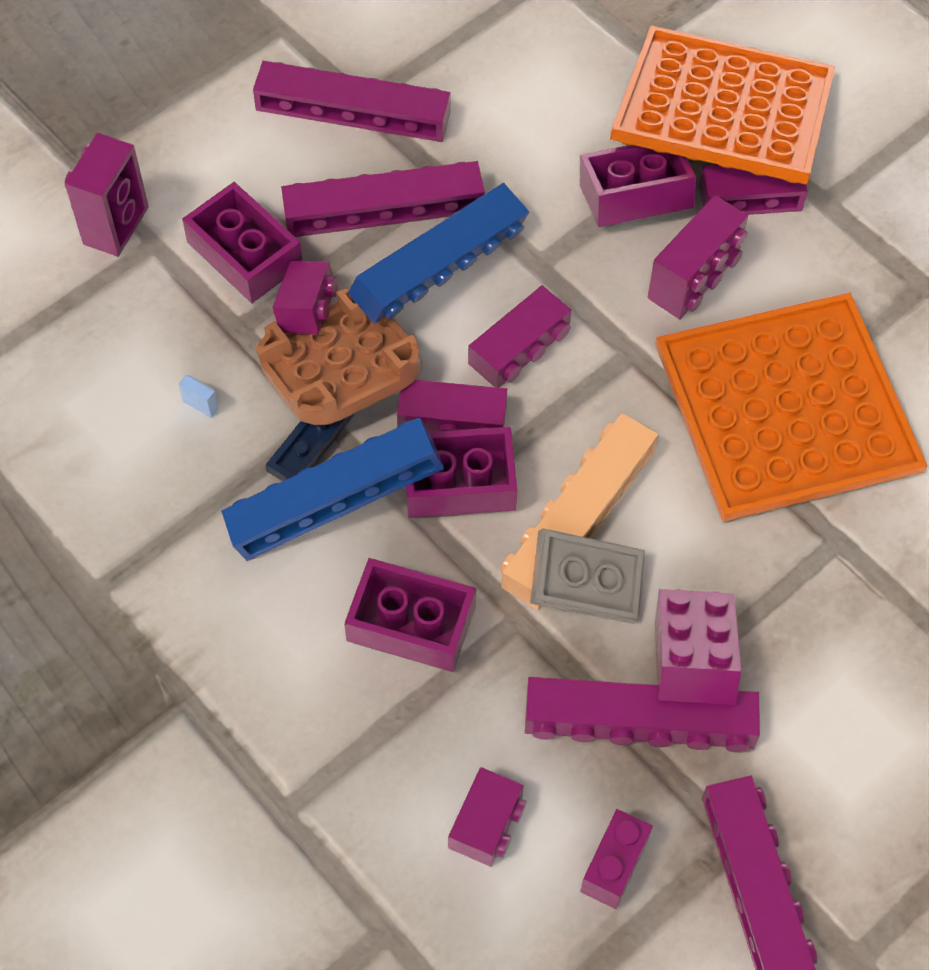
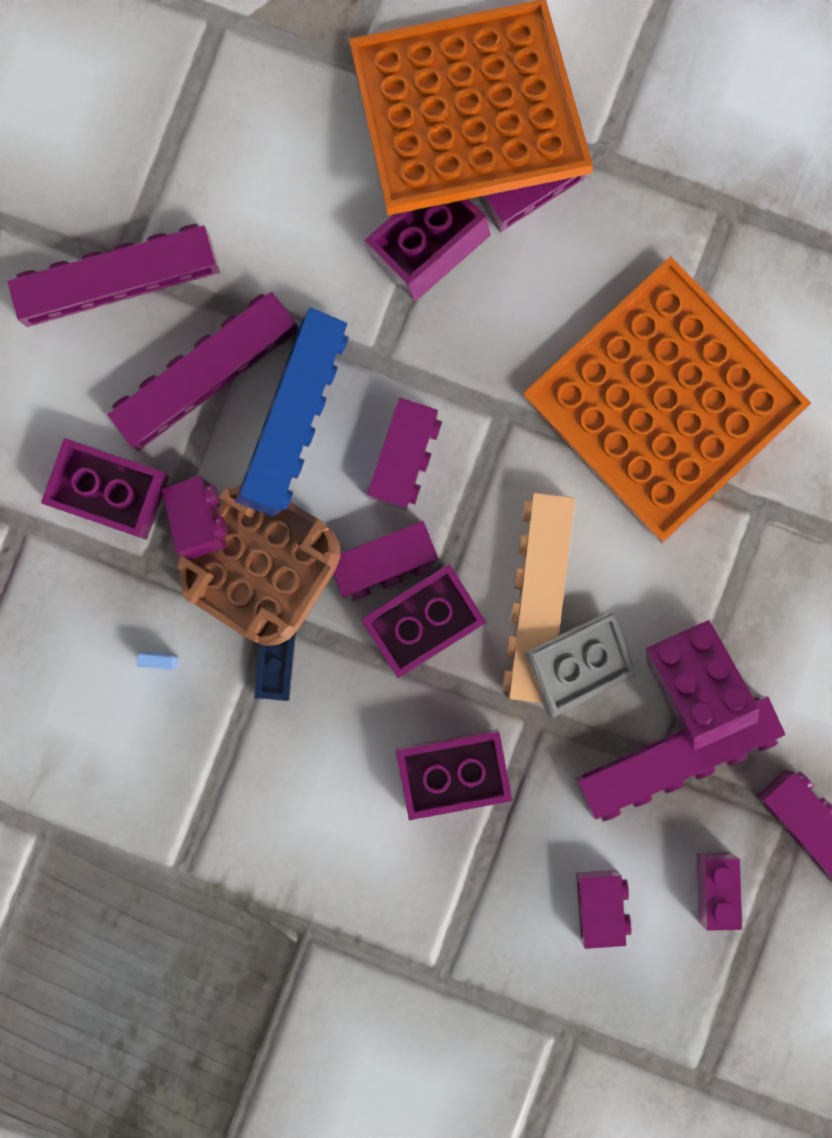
camera: 25 degrees left, 25 degrees up
(332, 489) = (330, 702): blue brick -> none
(698, 257) = (525, 293): magenta brick -> none

